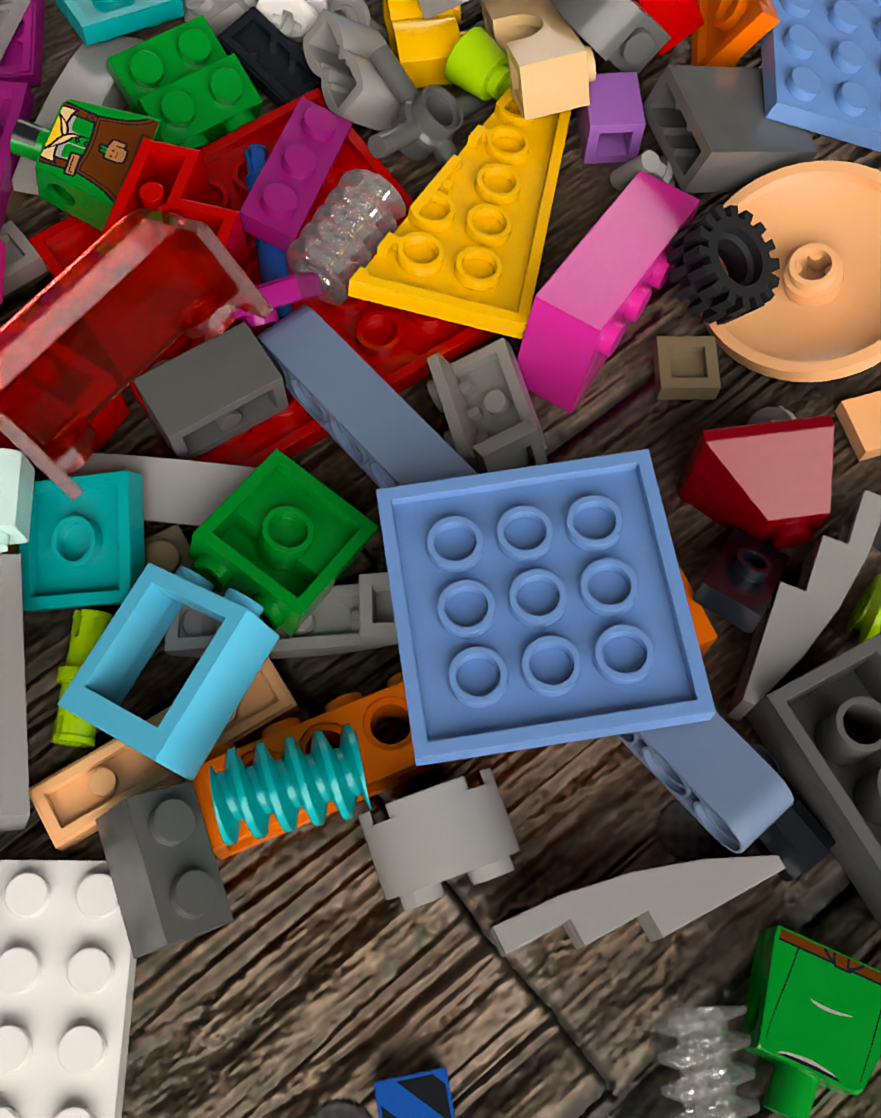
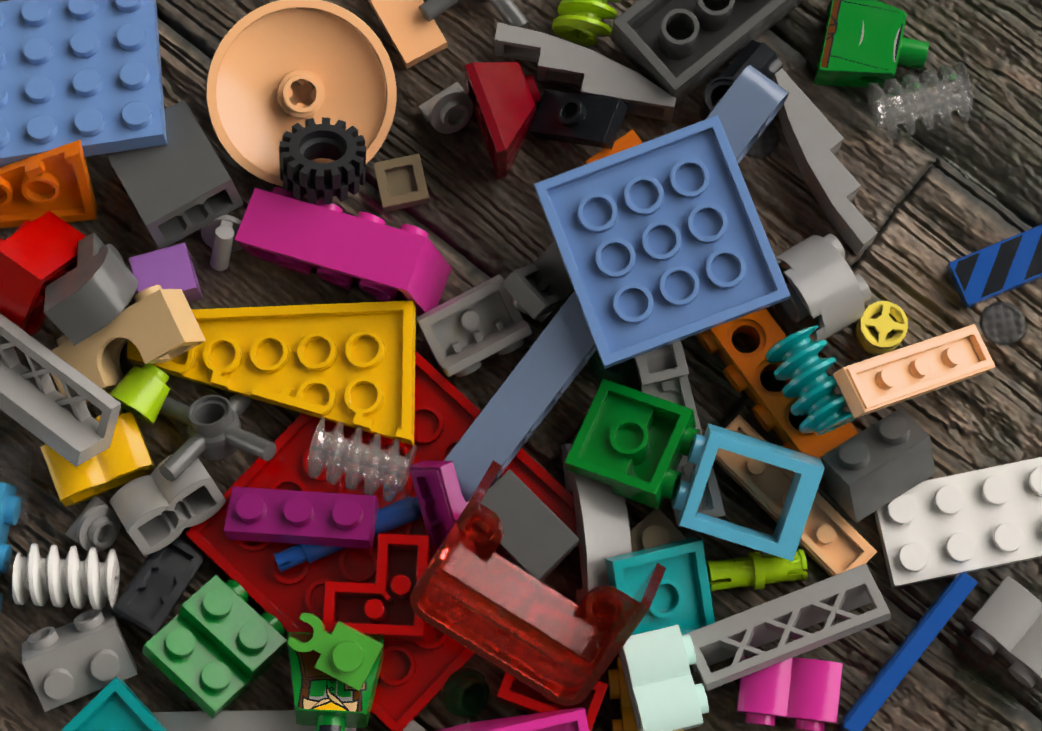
camera: 100 degrees left, 10 degrees up
(112, 148) = (344, 652): none -> bright green plate
(277, 951) = (913, 370): none -> light nougat tile
(362, 918) = (884, 318): none -> light yellow wheel

